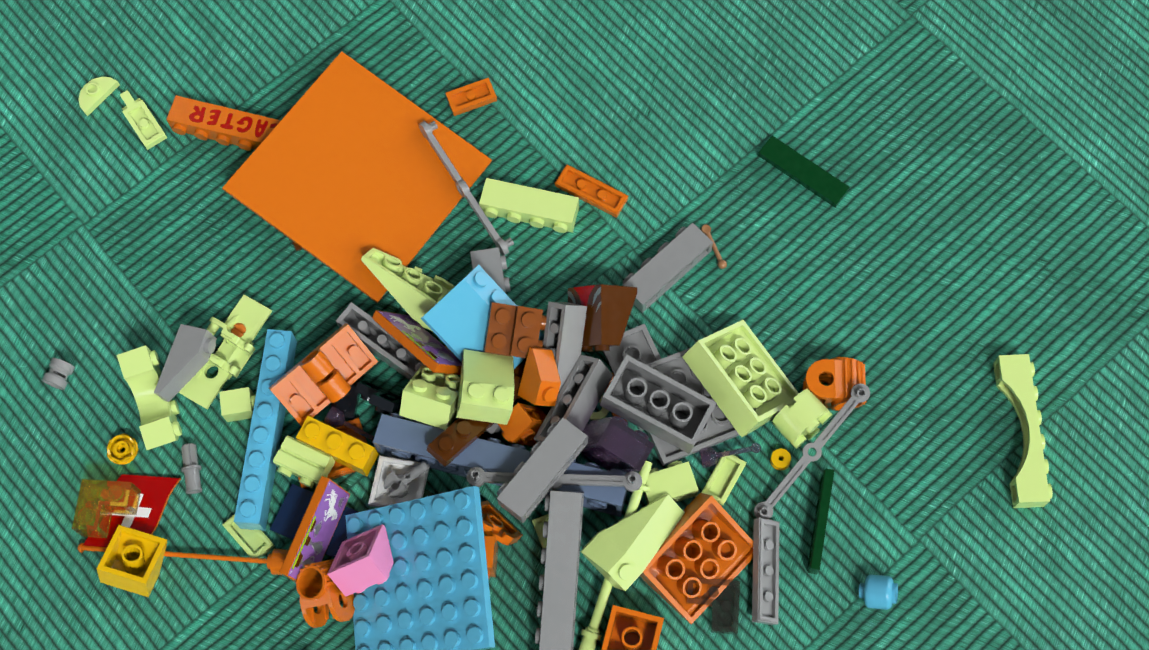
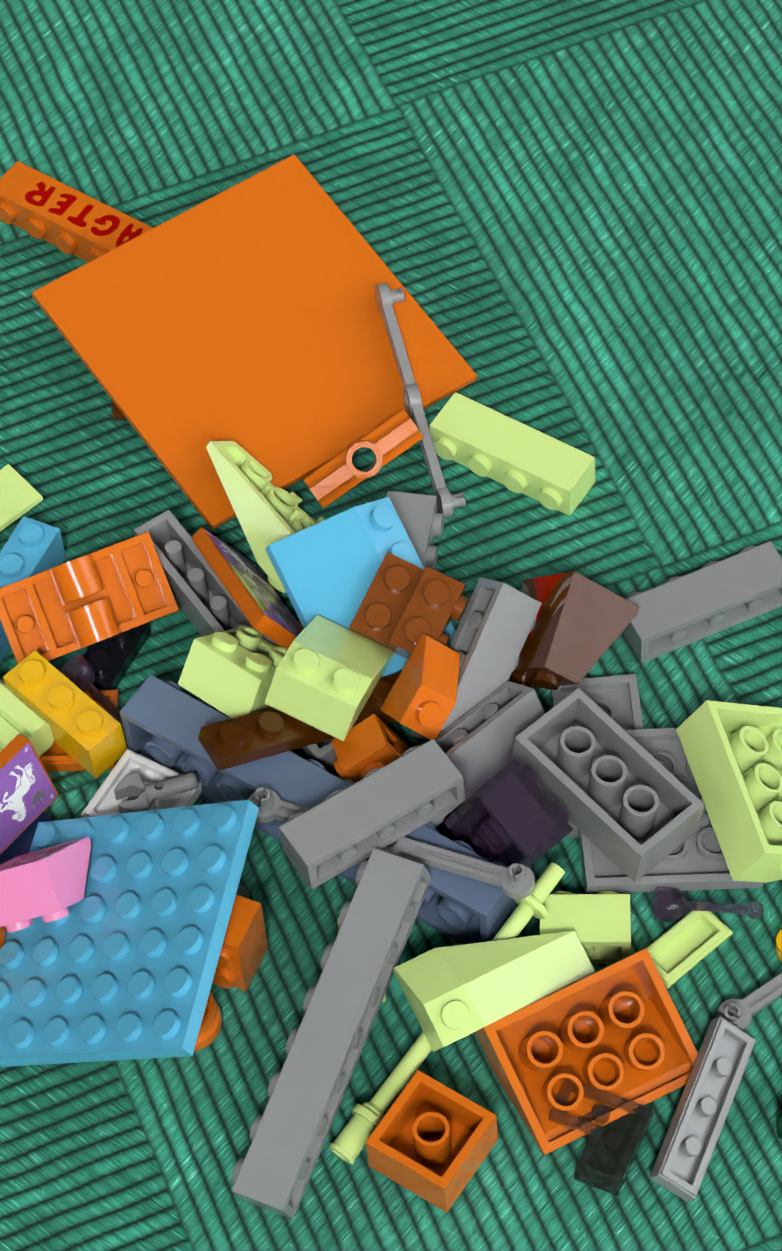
camera: 20 degrees right, 15 degrees down
(384, 400) = (154, 660): black plate -> none
(457, 221) = (385, 441): none -> orange piece
(471, 96) = (478, 277): orange plate -> none
(497, 525) = (279, 910): orange plate -> none
(591, 191) = (624, 462): orange tile -> none

